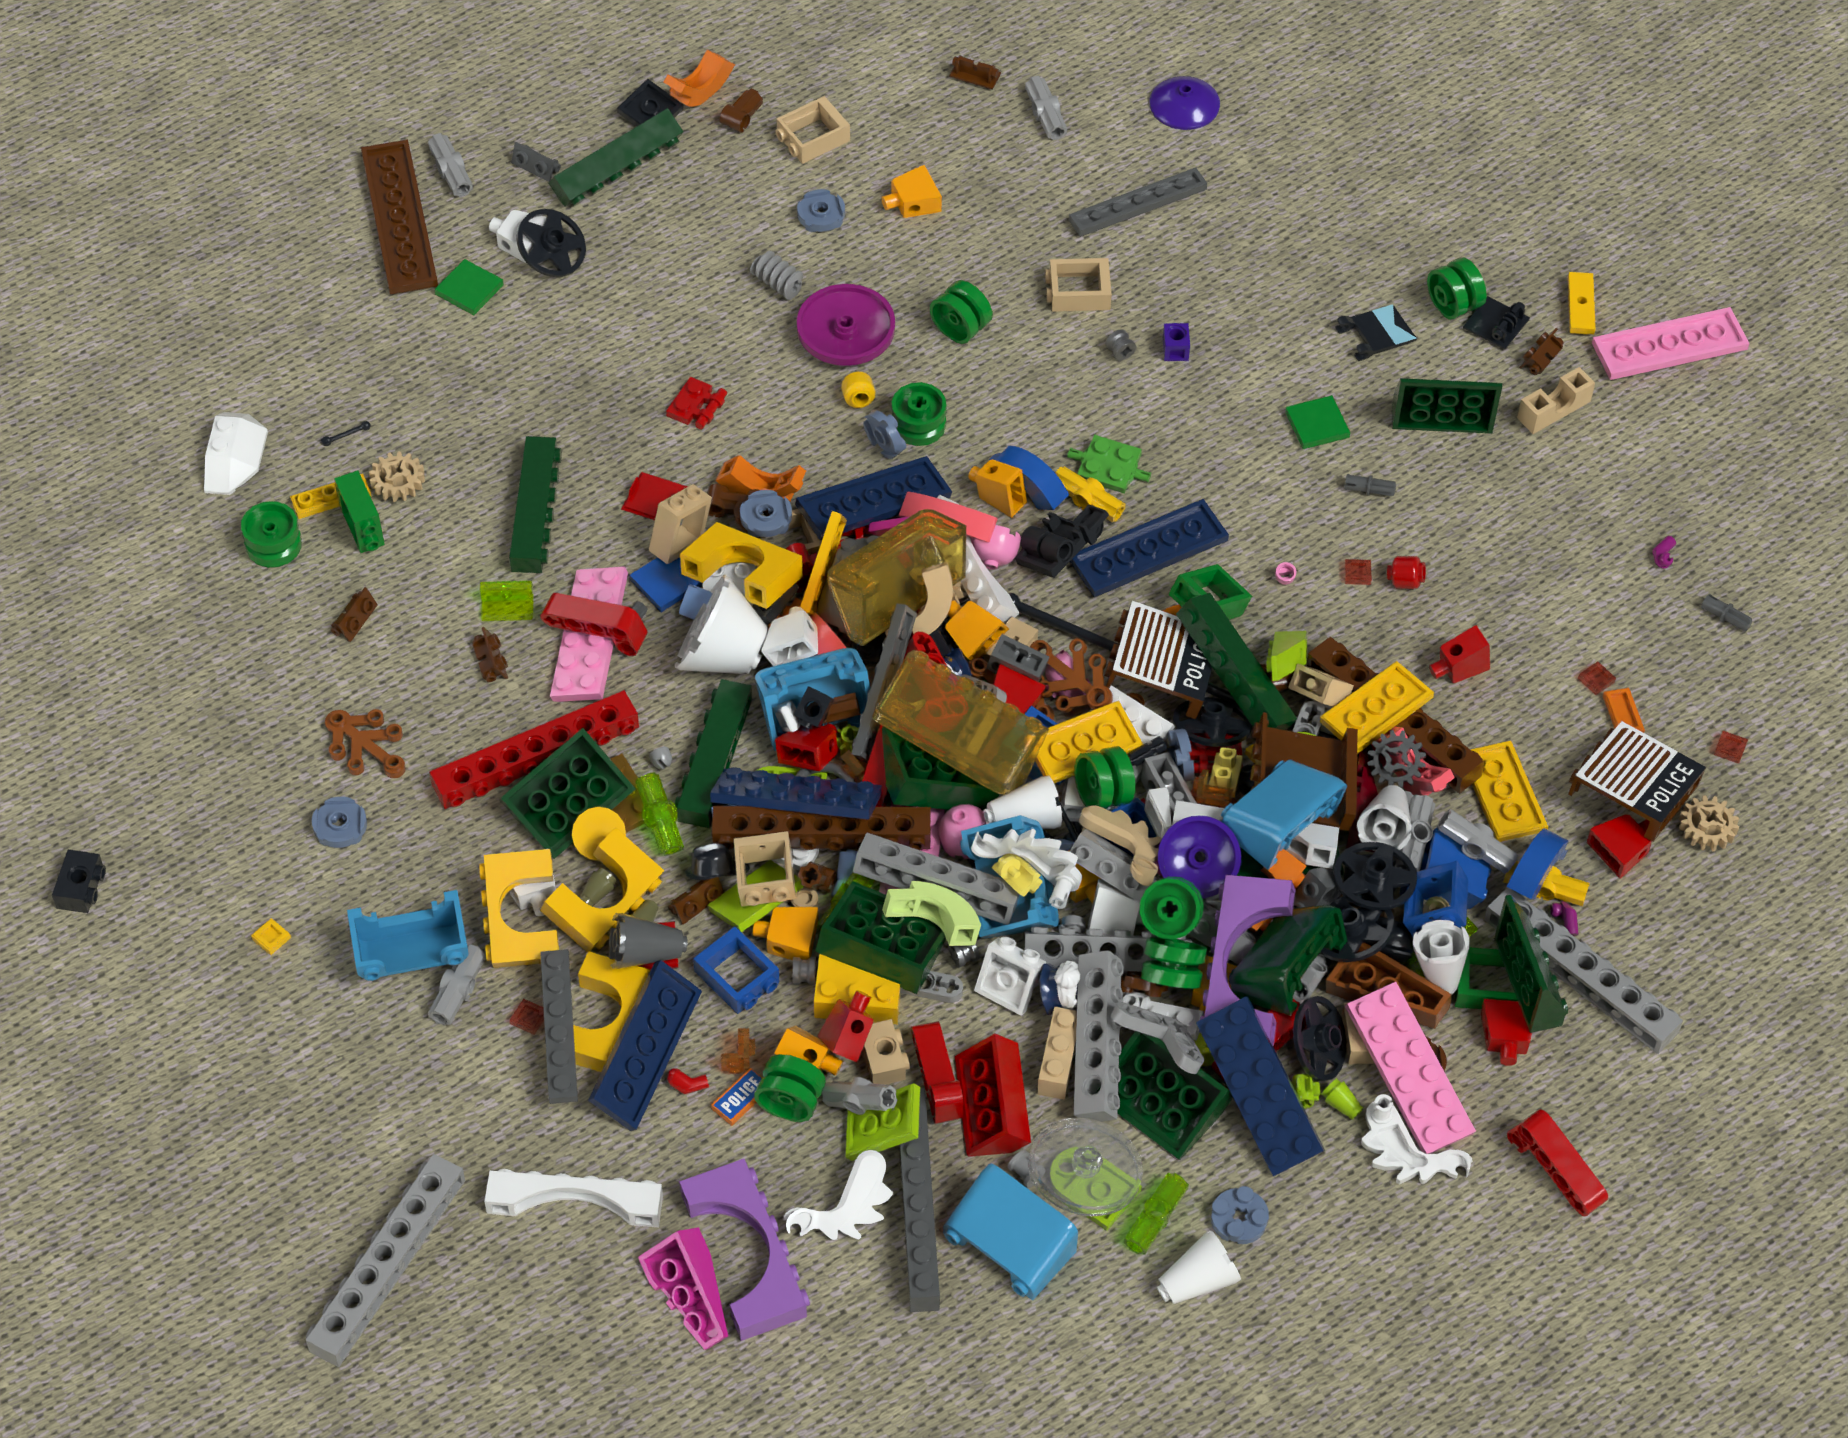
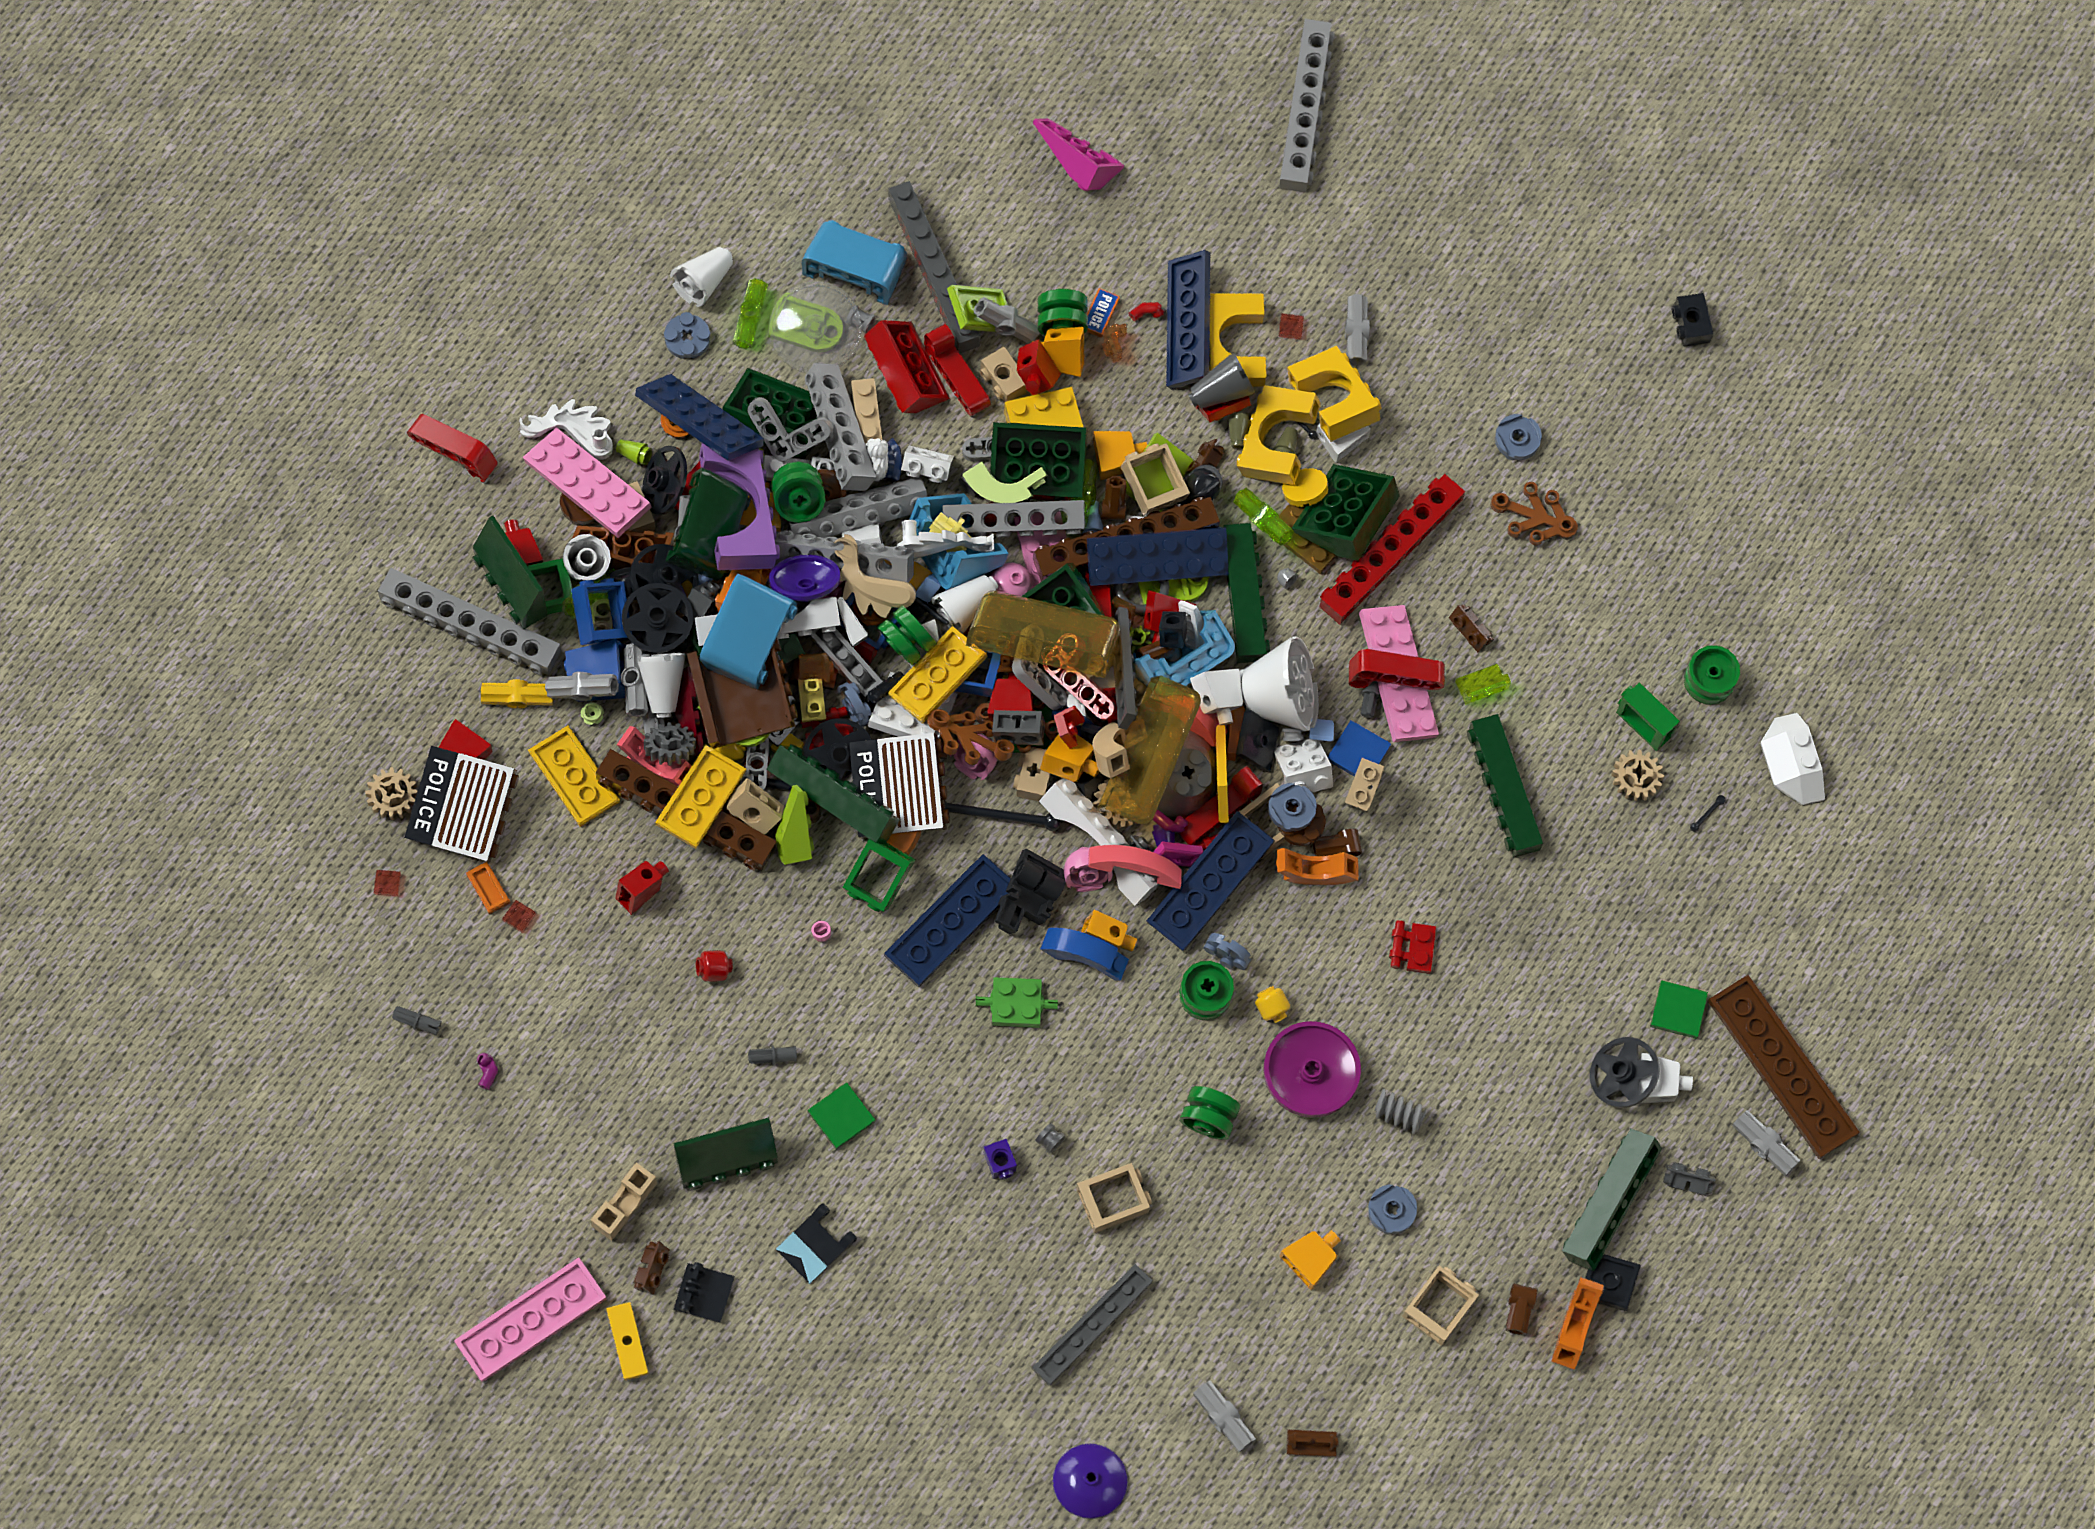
camera: 155 degrees right, 15 degrees up
(271, 936) = (1521, 328): yellow tile -> none
(317, 500) = (1677, 751): yellow tile -> none
(356, 615) = (1605, 619): reddish brown hinge -> none
(408, 939) = (1410, 341): dark azure windscreen -> none
(515, 1192) = (1145, 201): white arch -> none
(559, 1026) = (1259, 306): dark grey plate -> none
(647, 493) = (1407, 837): red piece -> none
(720, 951) = (1137, 424): blue window -> none
(723, 545) = (1258, 752): yellow arch -> none
(733, 1193) = (1070, 230): medium lavender arch -> none
(804, 970) = (1093, 423): flat silver wheel -> none
(855, 1206) = (976, 249): white animal -> none
(970, 639) = (1066, 724): none -> red bracket
(1073, 921) = (893, 533): light grey plate -> none
(1090, 492) = (1023, 959): yellow piece -> none
(1155, 910) = (812, 523): green wheel -> none
(1306, 1089) = (665, 439): lime gear -> none
(1358, 572) = (758, 960): clear red tile -> none
(1456, 288) = (750, 1301): green wheel -> none
(1537, 863) = (525, 694): blue arch -> none
(1567, 914) = (490, 668): magenta arm -> none

